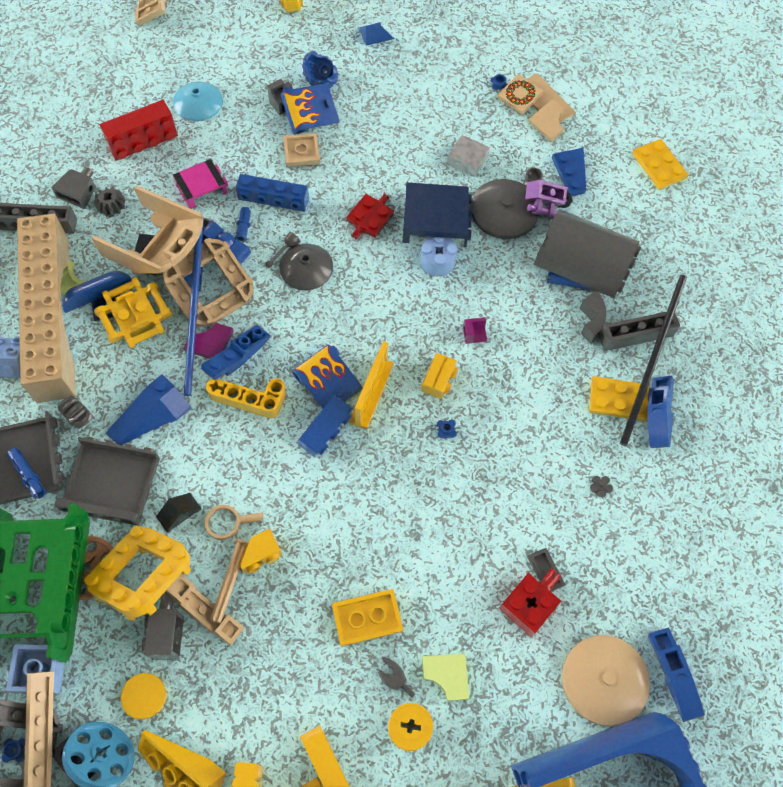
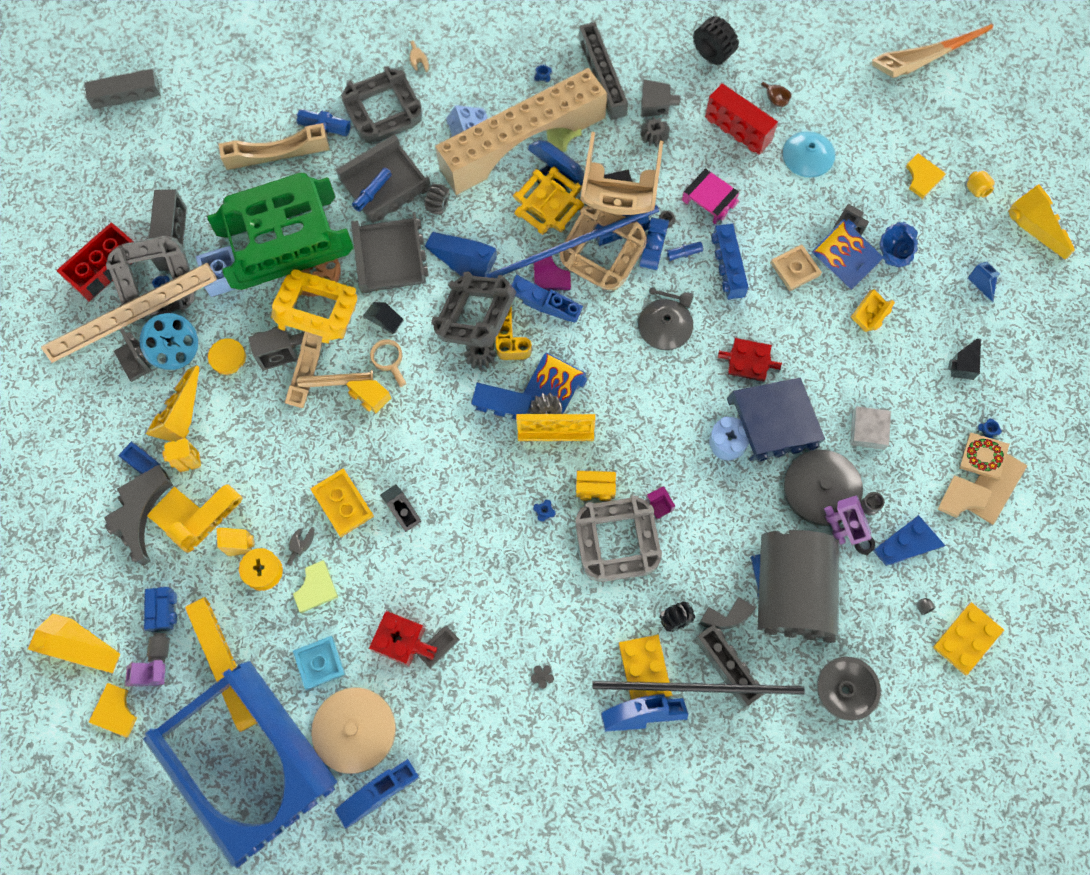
camera: 75 degrees right, 5 degrees up
(47, 116) = (715, 40): none -> black tyre
(127, 98) = (777, 94): none -> reddish brown piece
(207, 443) = (482, 333): none -> dark grey plate
(262, 33) = (924, 175): none -> yellow tile
(272, 433) = (480, 360): none -> dark grey gear
(350, 387) = (546, 405): none -> dark grey gear
(368, 113) = (872, 311): none -> yellow bracket
(371, 744) = (234, 541): none -> yellow slope
(394, 559) = (400, 507): none -> black slope
(438, 71) = (967, 361): none -> black slope
(493, 402) = (612, 511): none -> light grey plate
(529, 694) = (319, 662): none -> medium azure plate
(584, 353) = (677, 616): none -> black gear
(627, 179) = (925, 606): none -> dark grey hinge
(684, 246) = (862, 686): none -> dark grey dish

